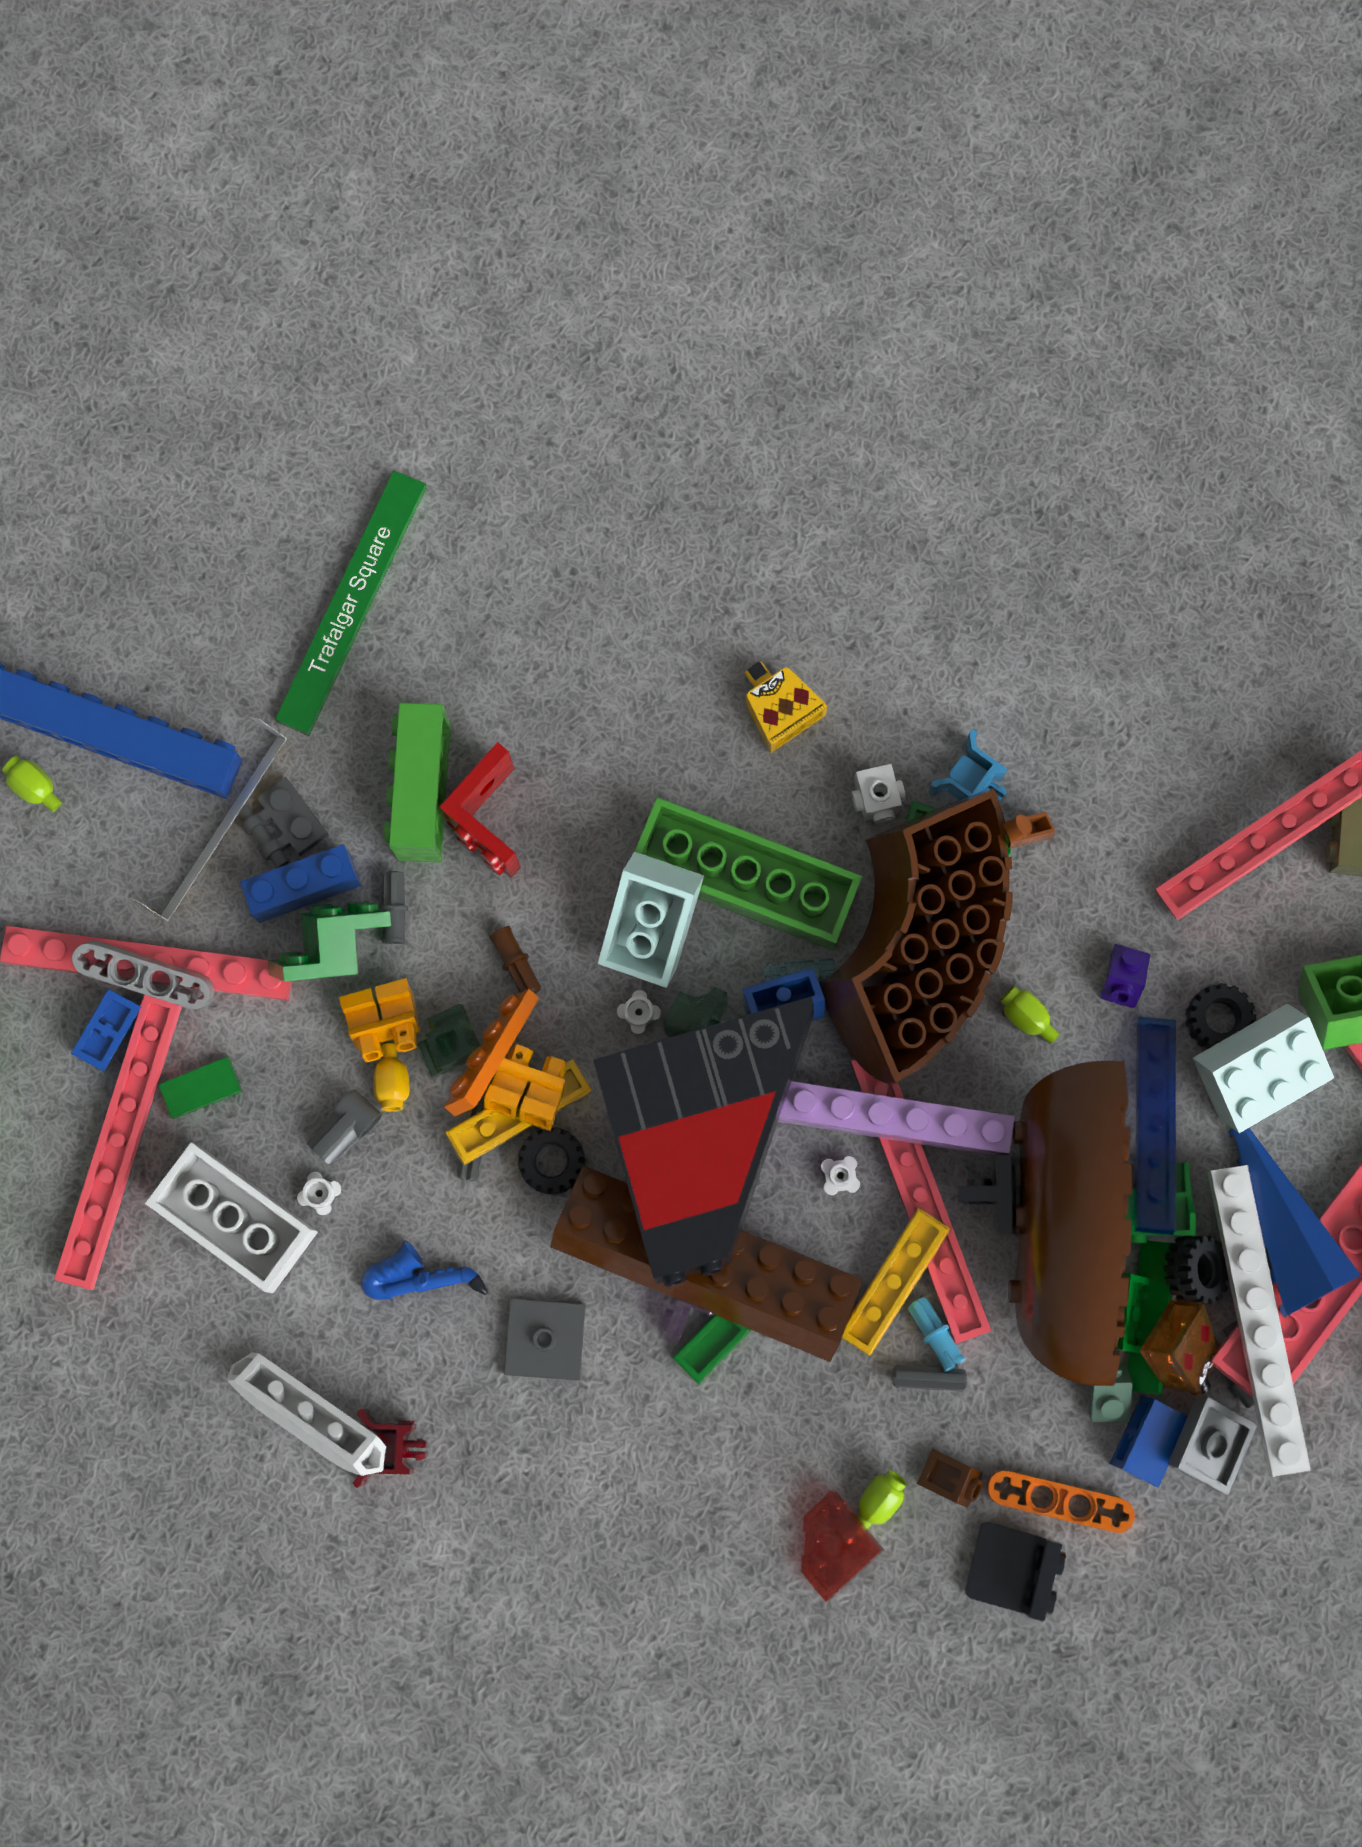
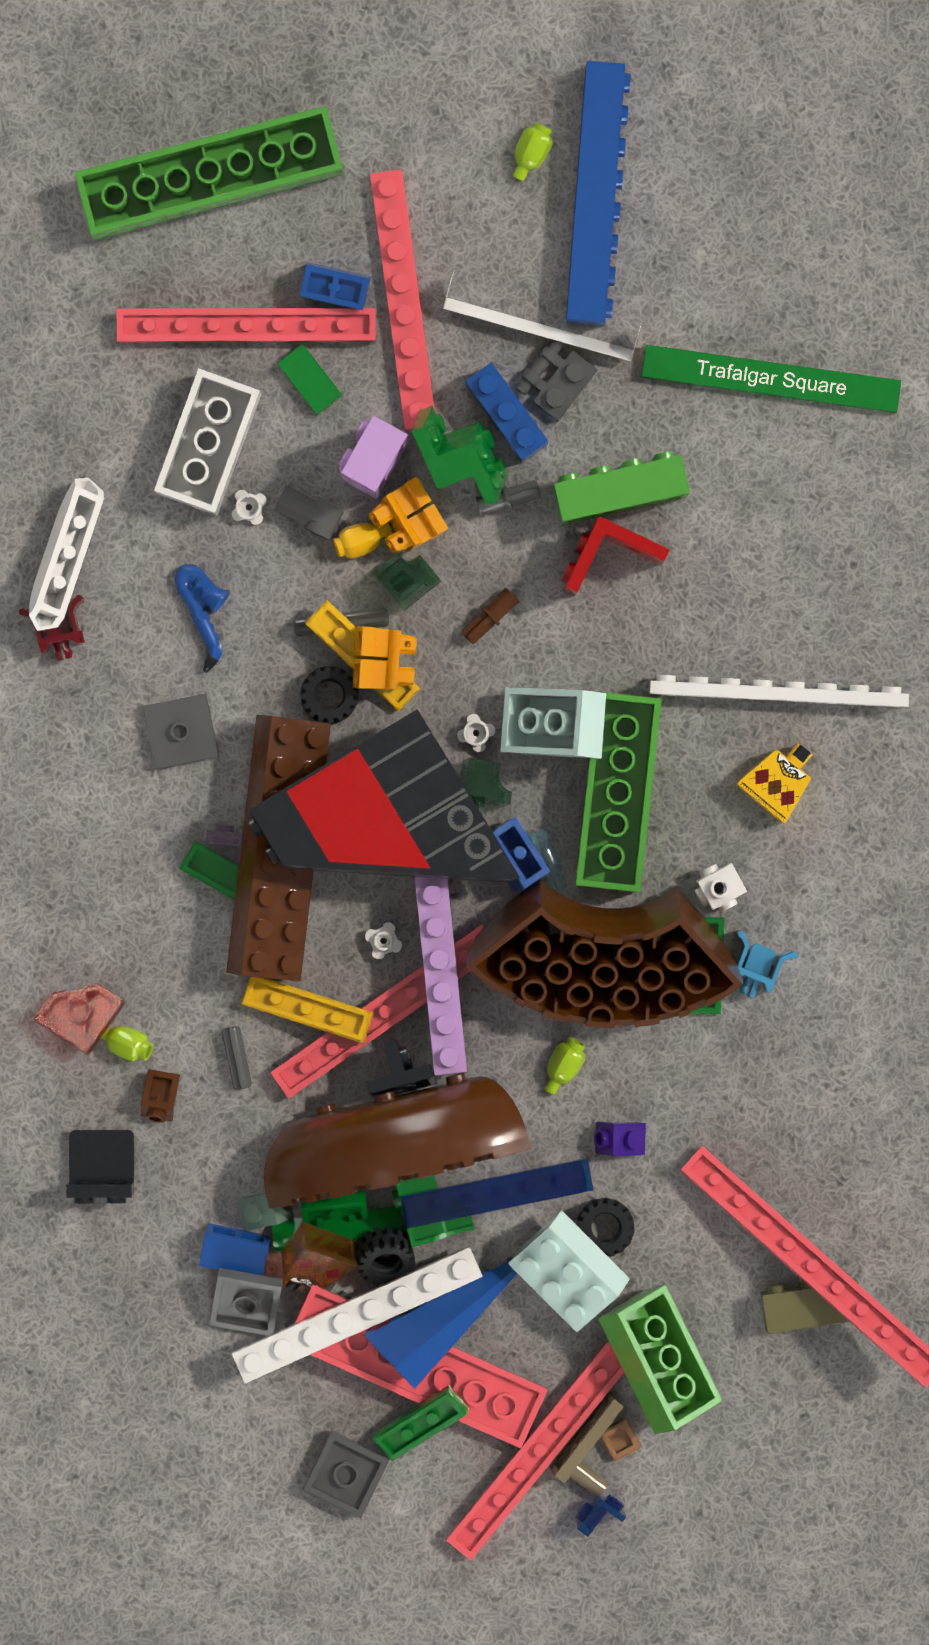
camera: 70 degrees right, 10 degrees up
(144, 970) = (385, 303): light grey beam -> none
(300, 1036) = (374, 456): none -> lavender brick
(487, 1058) = (403, 620): orange plate -> none
(678, 694) = (792, 691): none -> white plate
(936, 1333) = (274, 1053): medium azure axle -> none
(1028, 830) = (720, 1023): dark orange piece -> none
(1058, 1506) = (171, 1189): orange beam -> none

